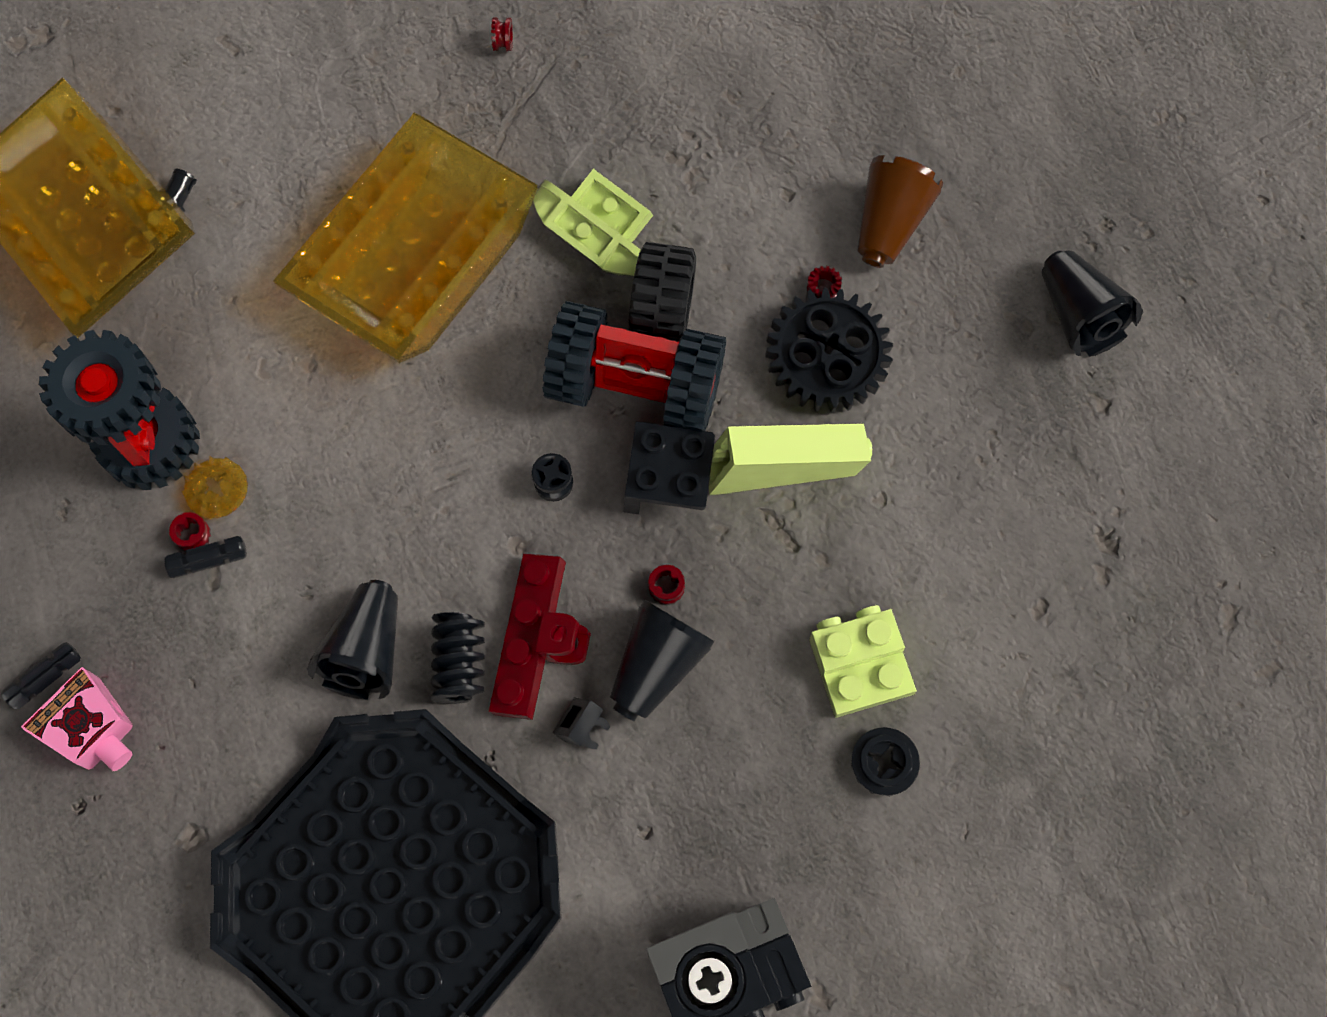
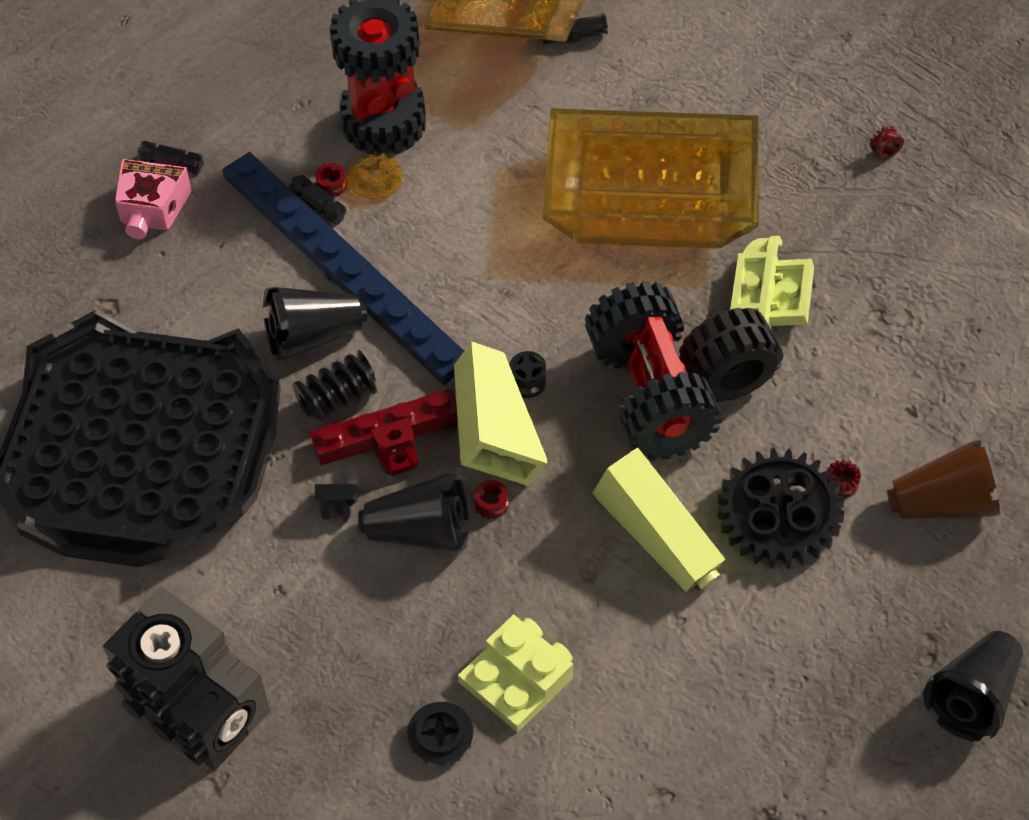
camera: 60 degrees right, 15 degrees down
(300, 576) = (345, 266): none -> dark blue plate
(586, 532) = (493, 418): none -> yellowish green slope
(668, 467) = (584, 438): black bracket -> none

